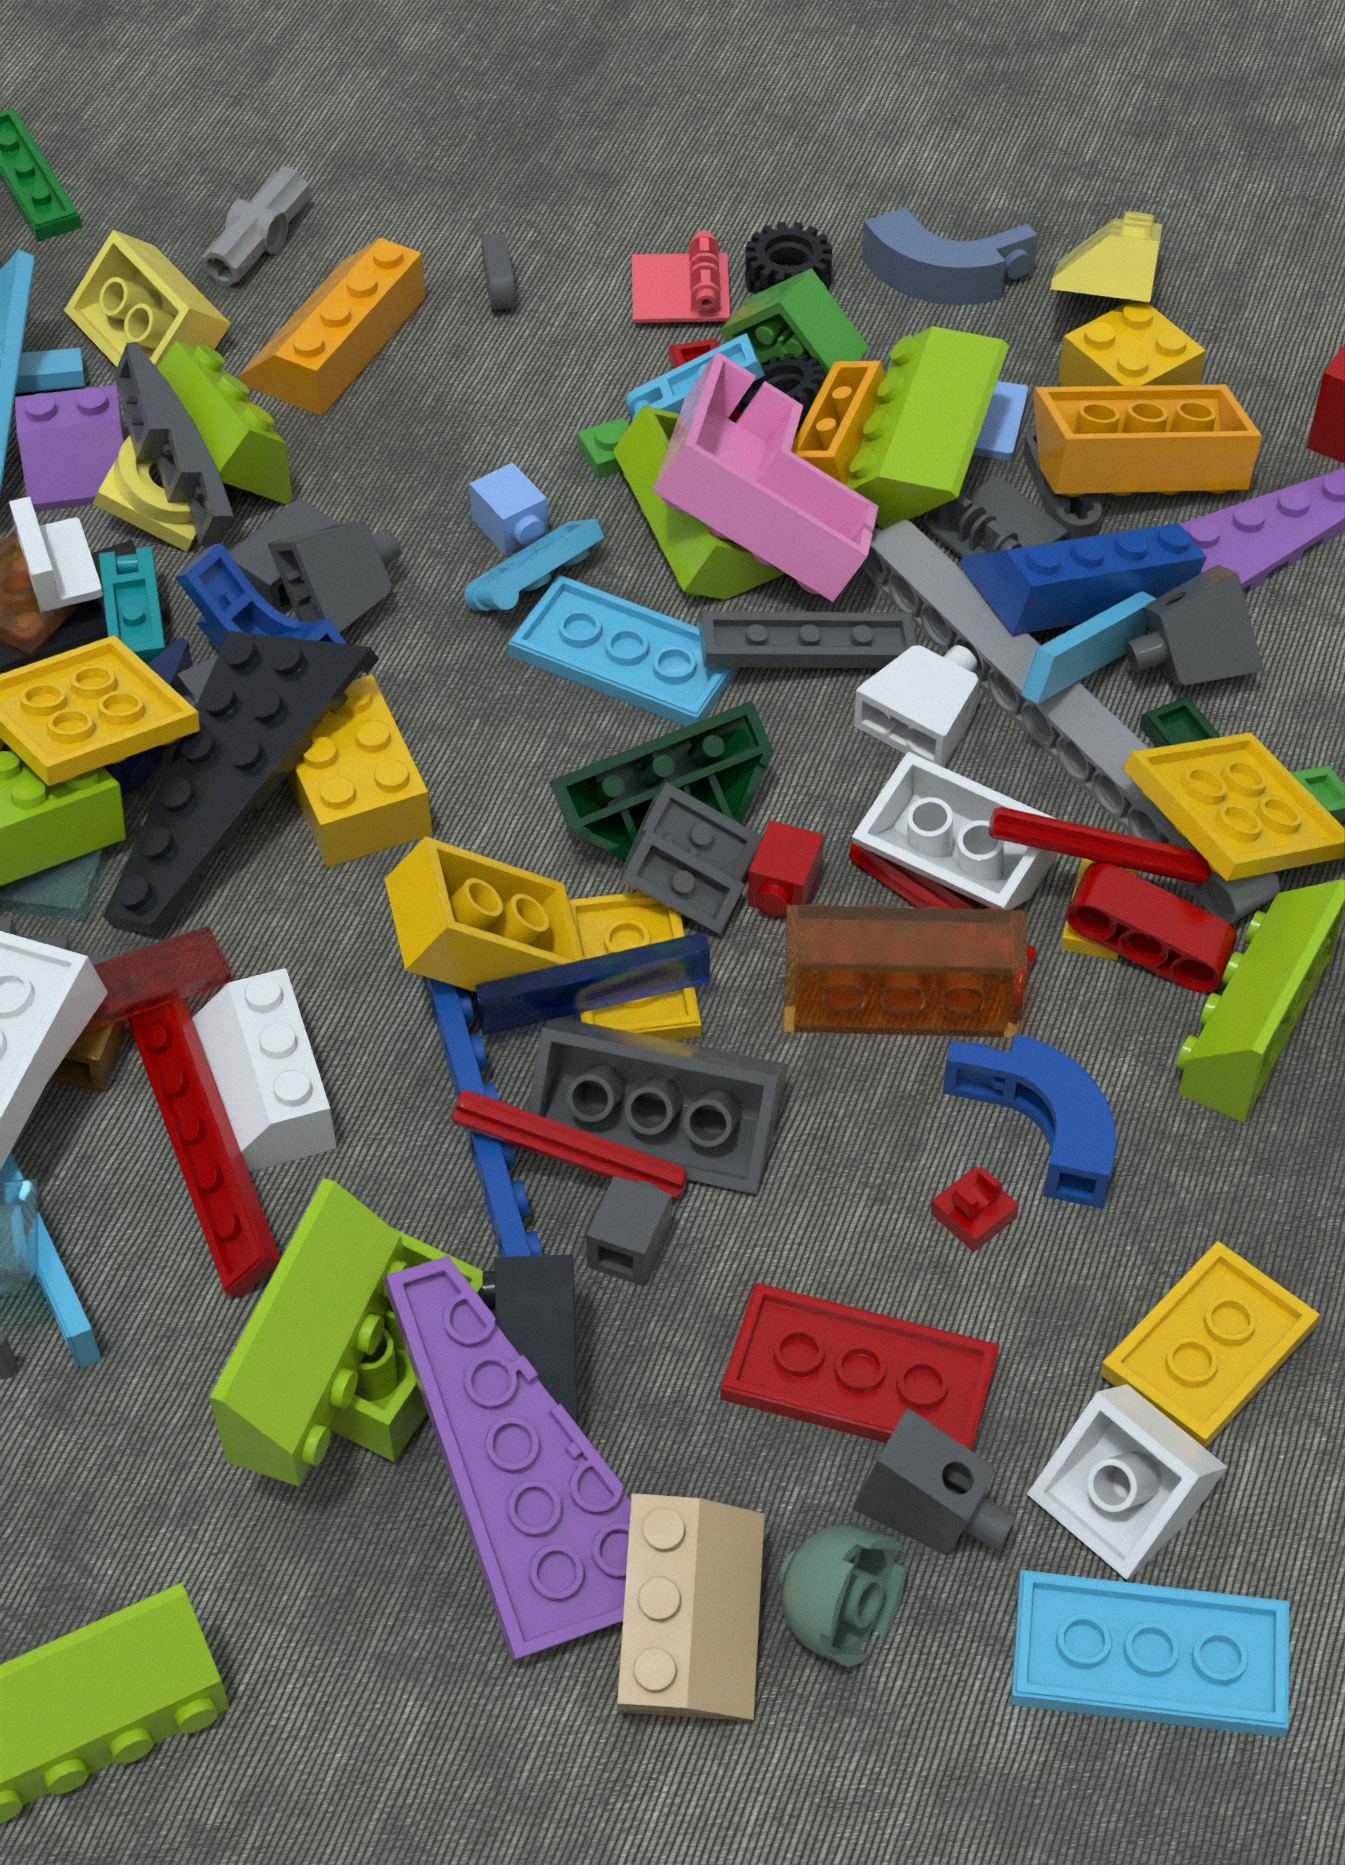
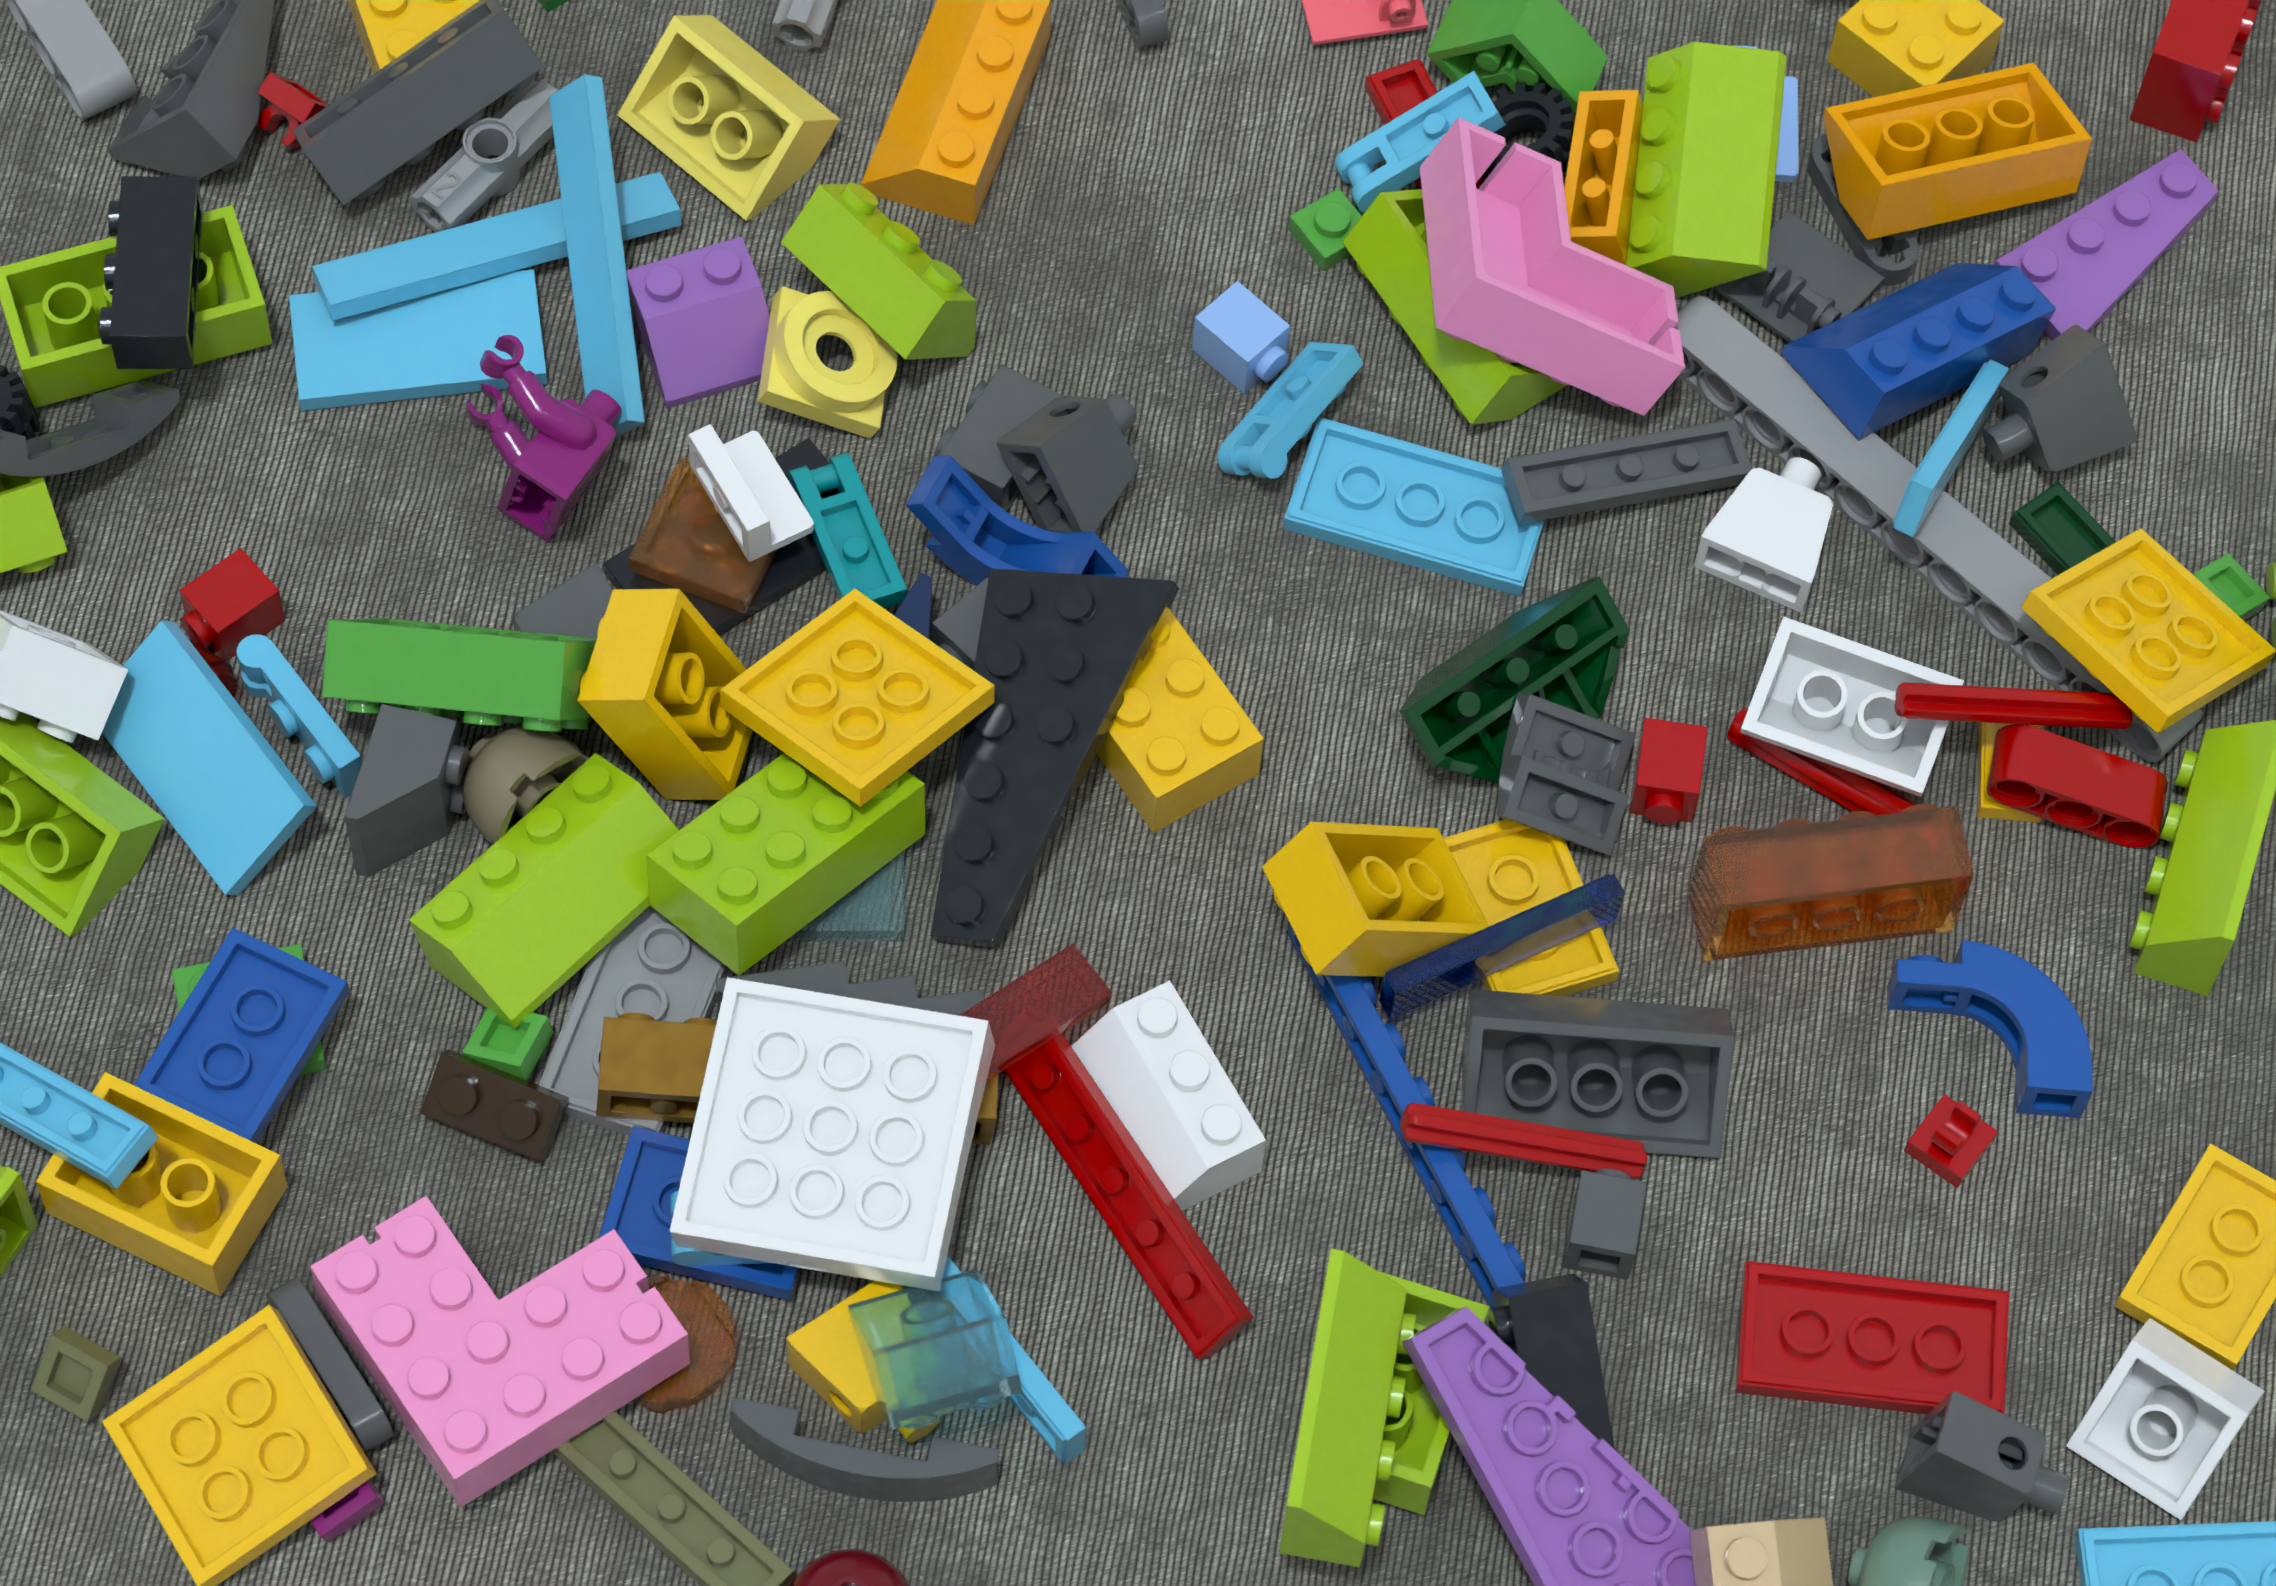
camera: 15 degrees left, 10 degrees up
(167, 433) = (836, 306): dark grey slope -> none

